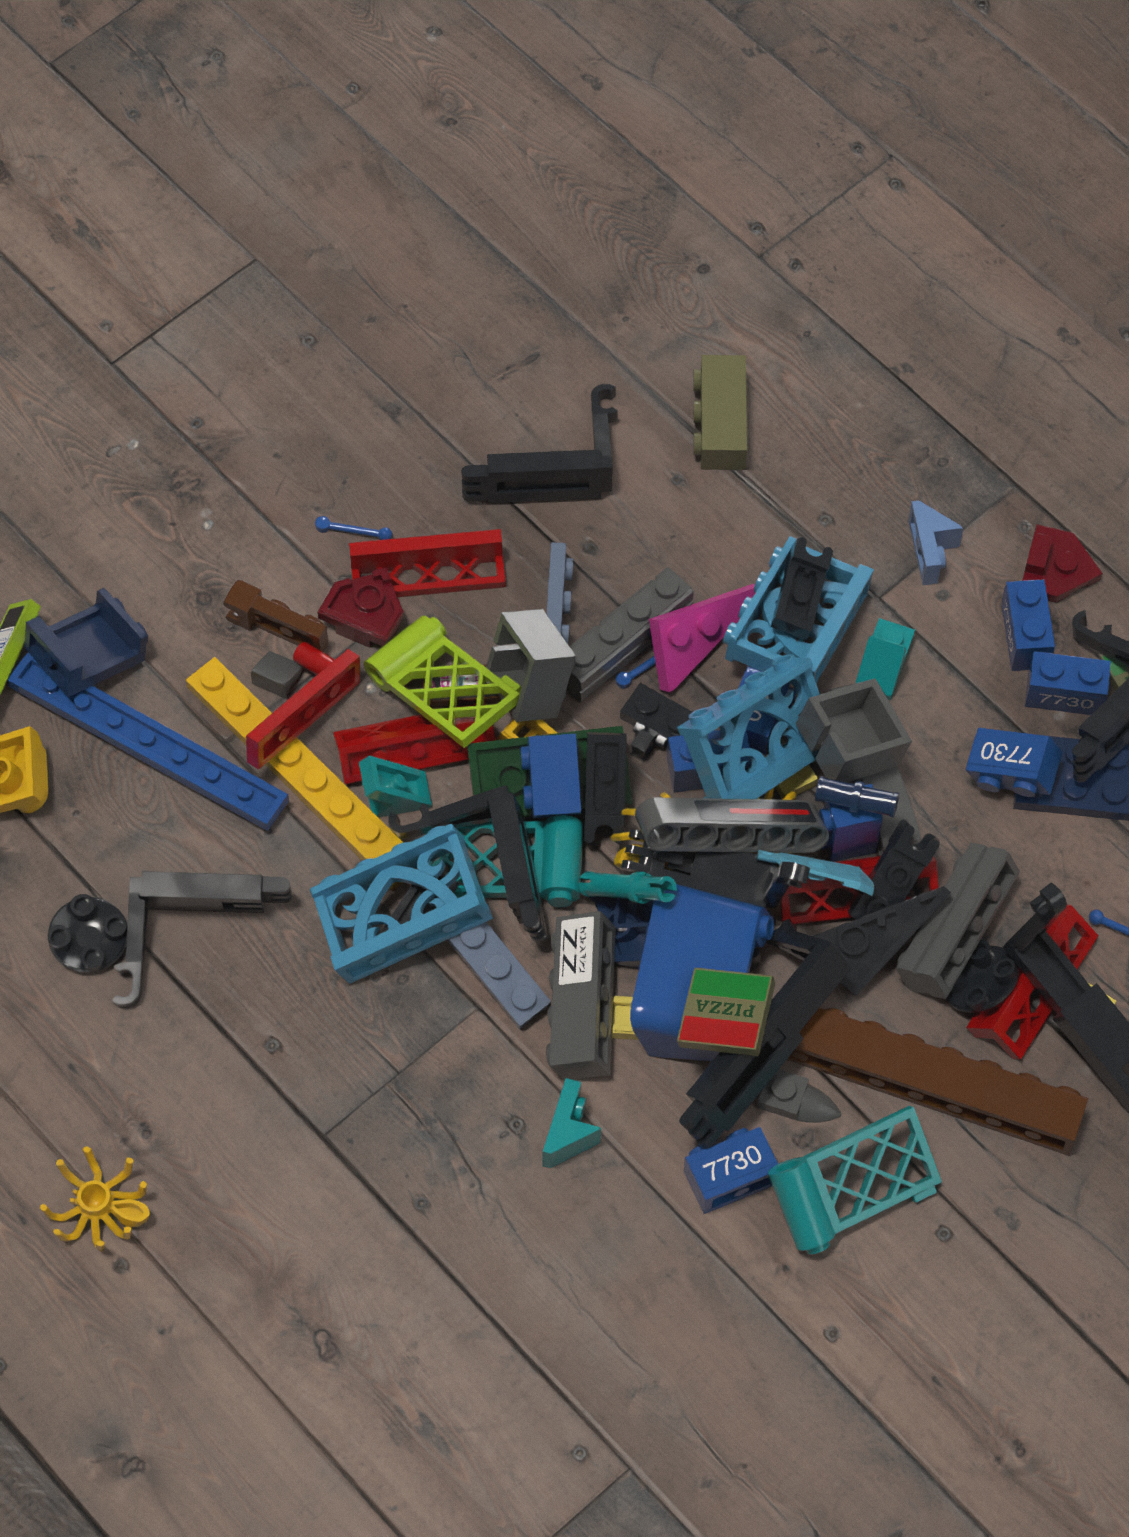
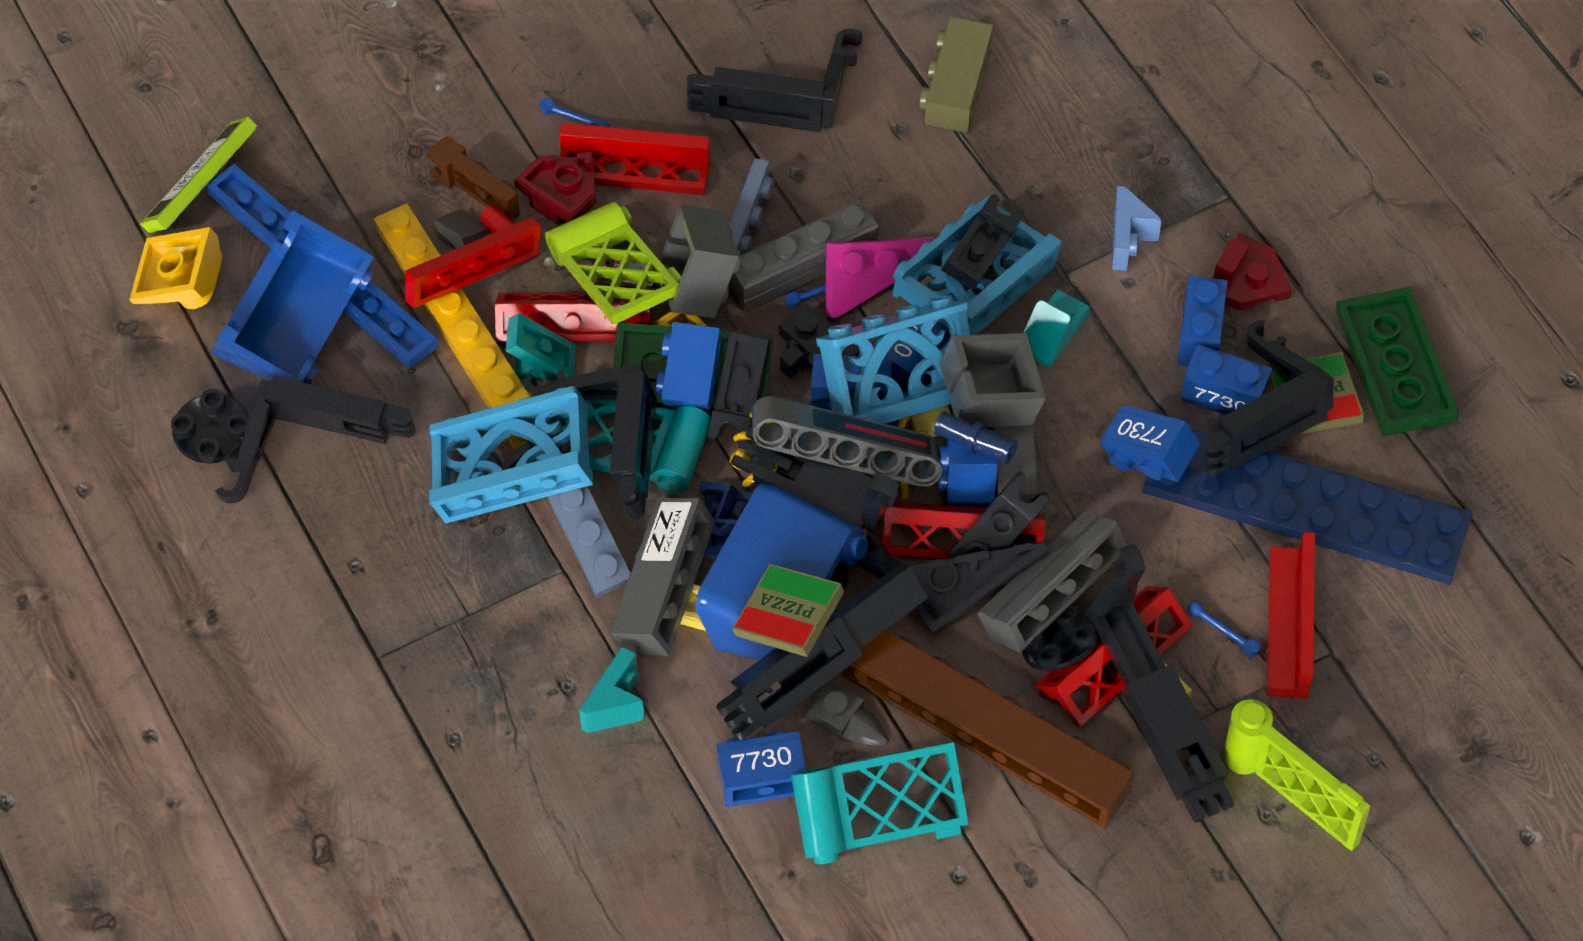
camera: 15 degrees right, 5 degrees down
(87, 644) = (289, 169): dark blue panel -> none
(97, 1201) = (143, 669): yellow animal -> none
(135, 788) = (294, 302): none -> blue windscreen
(637, 887) = (735, 480): teal pin -> none
(820, 869) = (924, 502): medium azure piece -> none

